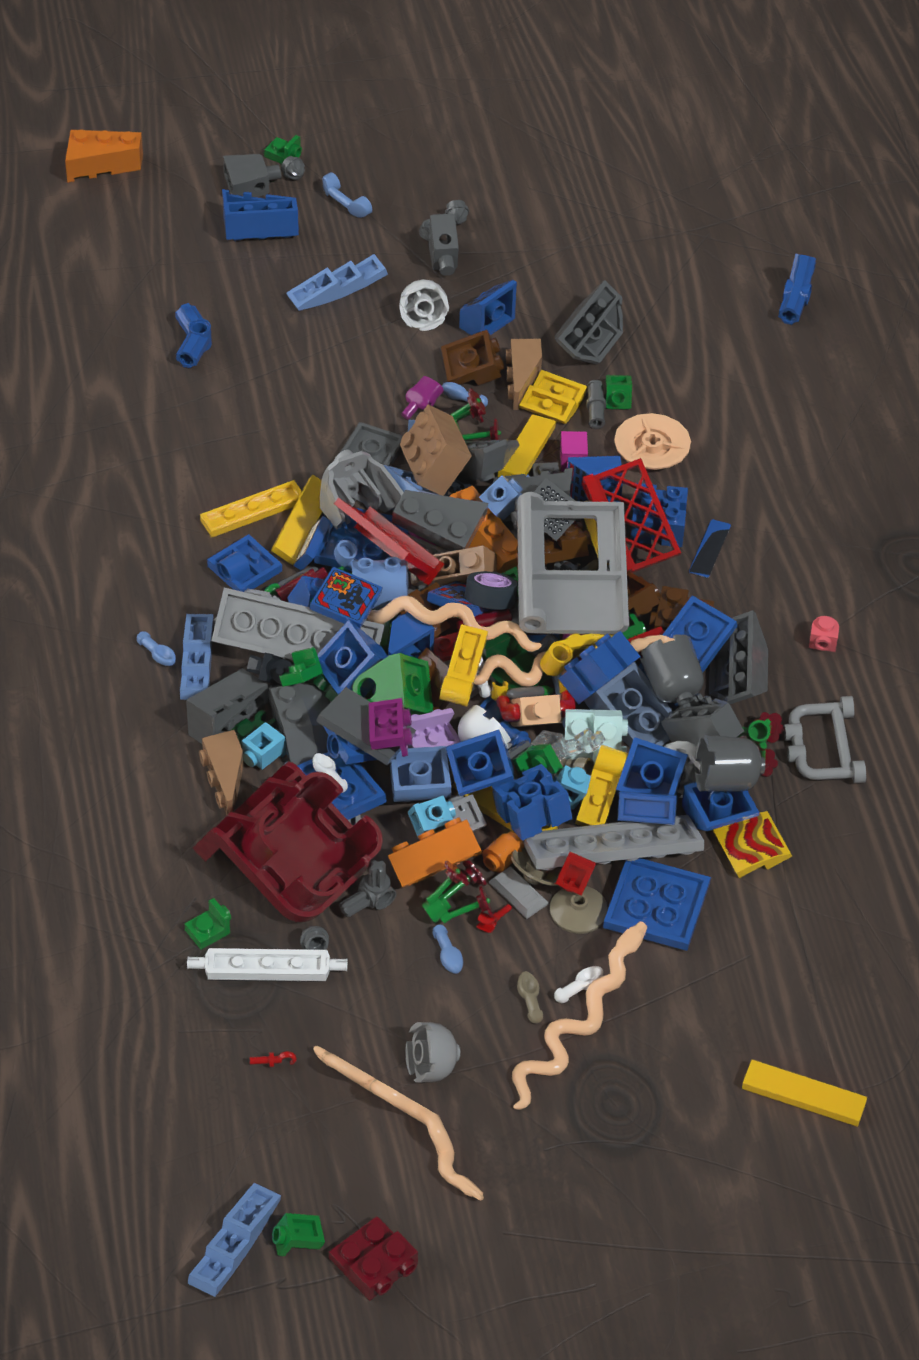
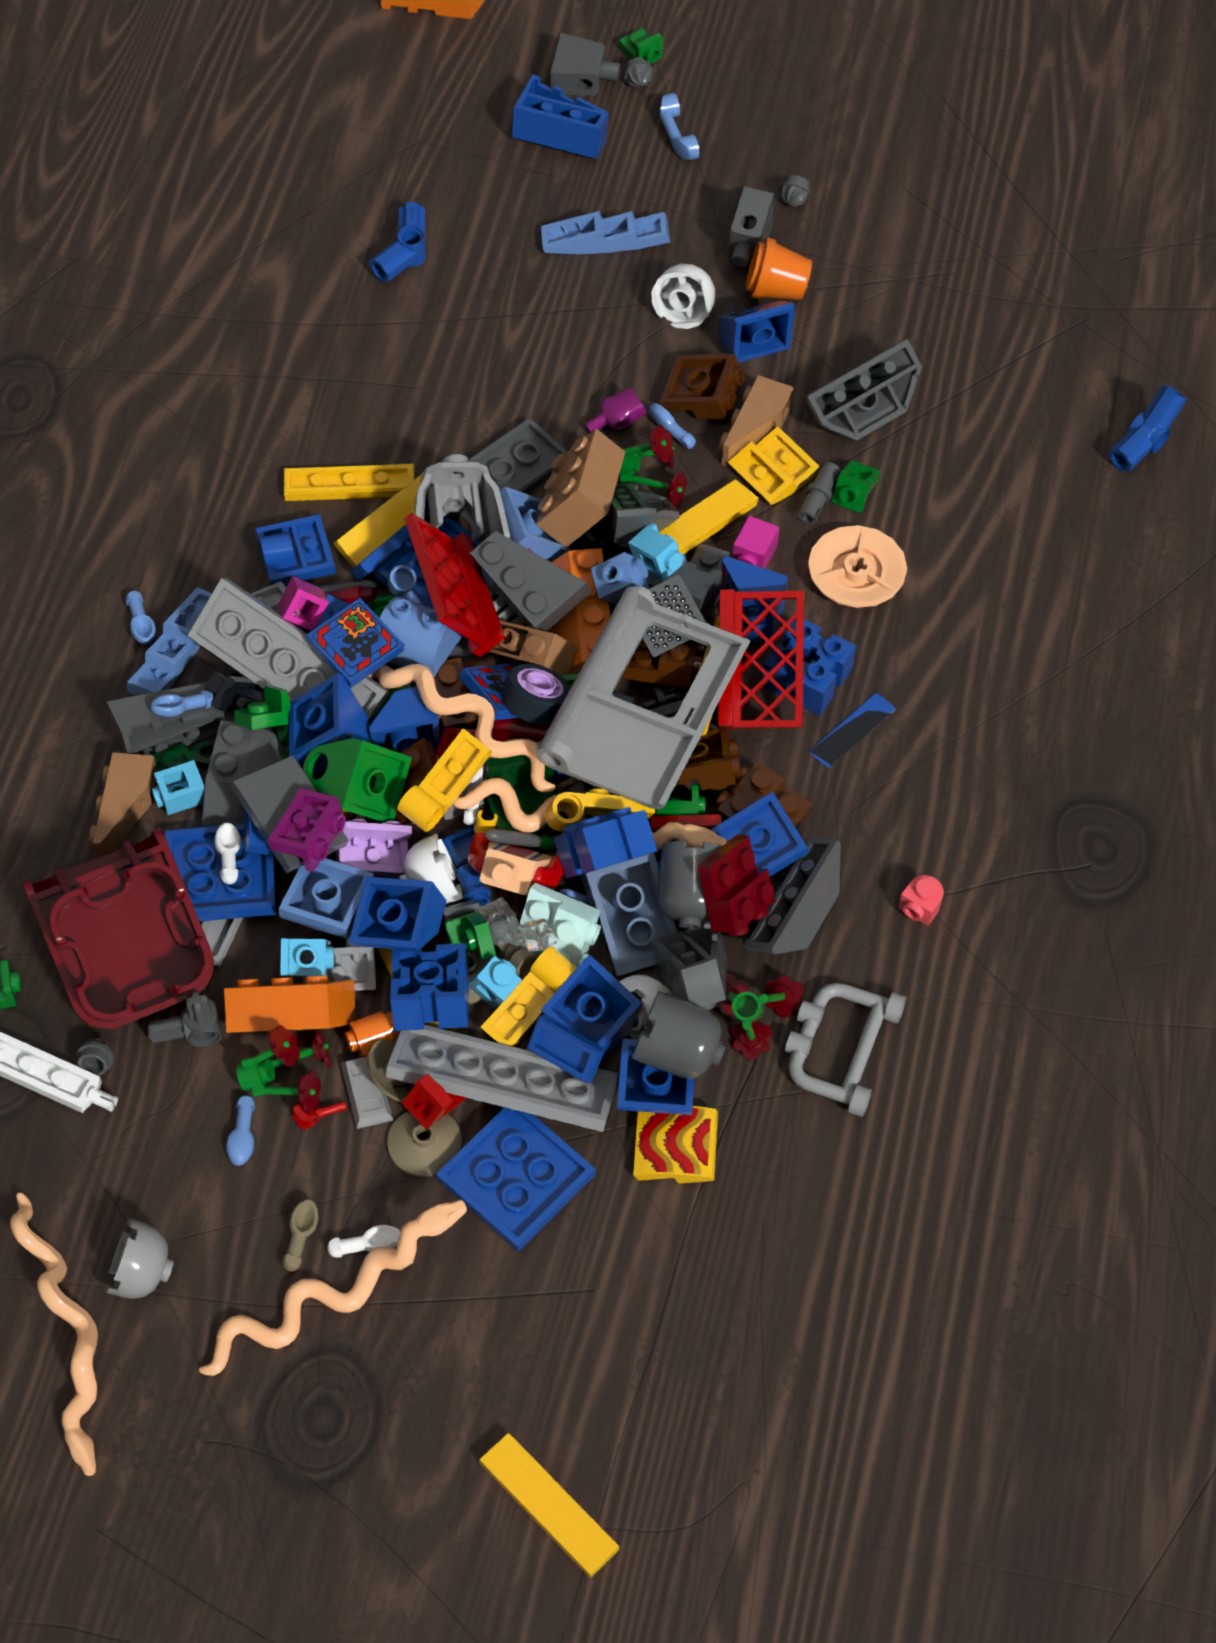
camera: 25 degrees right, 10 degrees up
(236, 686) = (174, 705): none -> medium blue piece
(288, 588) = (302, 603): none -> dark pink brick
(480, 268) = (777, 272): none -> orange piece
(521, 469) = (656, 551): none -> medium azure brick
(708, 662) = (735, 887): none -> dark red plate

